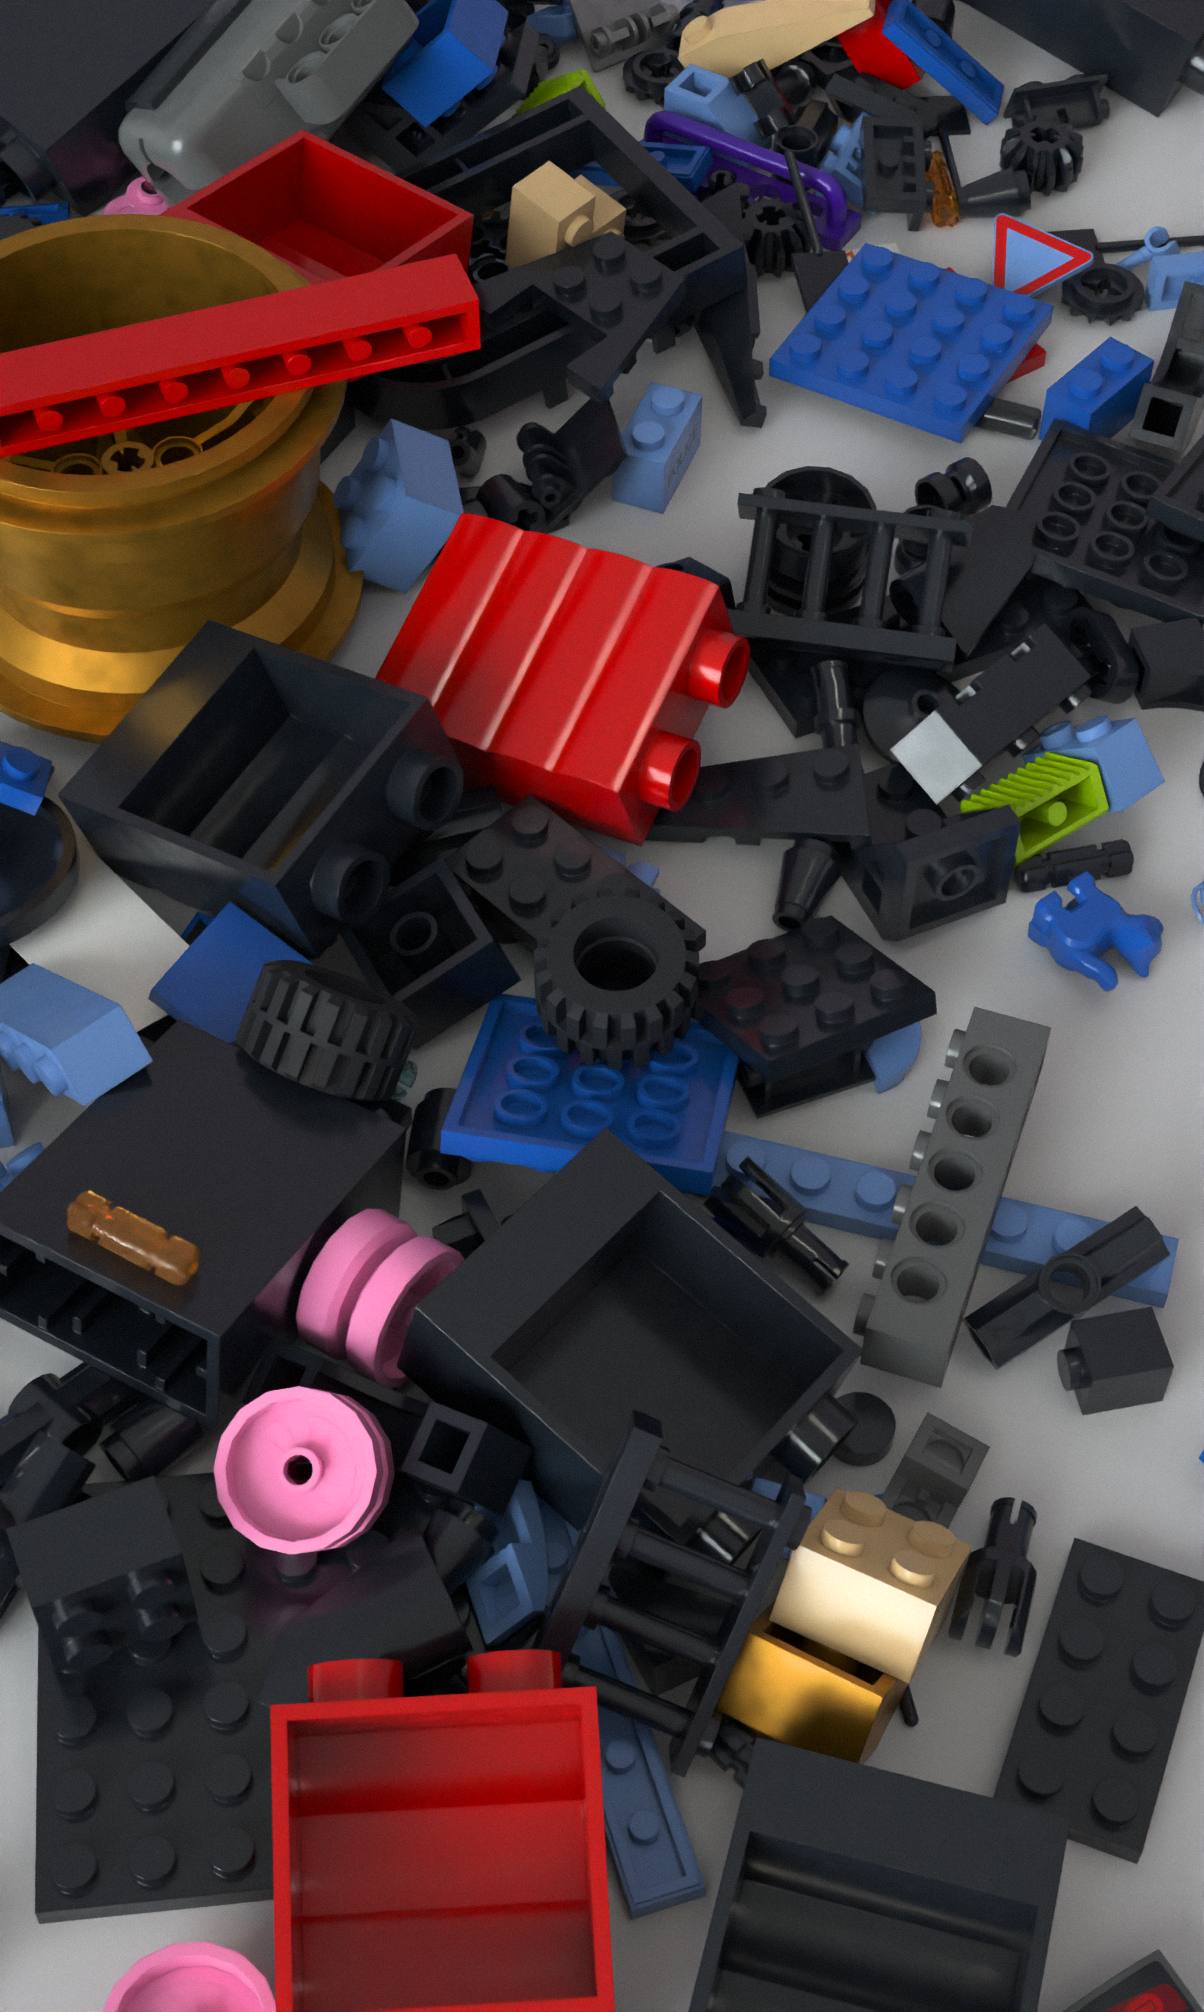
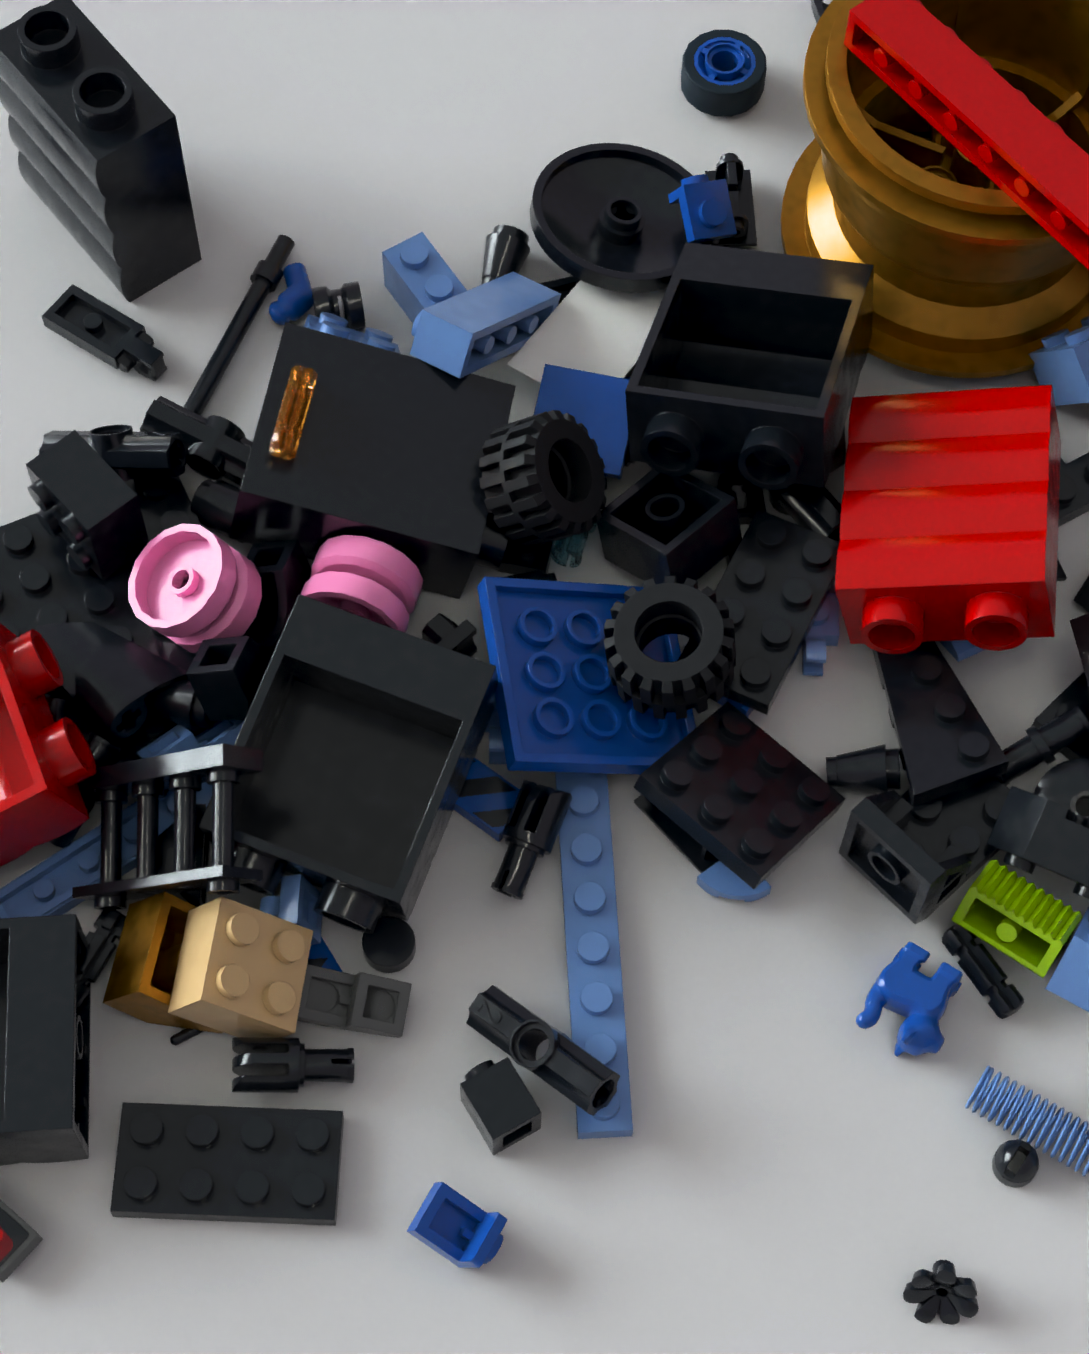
camera: 70 degrees right, 10 degrees up
(920, 1336) = (569, 964): dark grey brick -> none

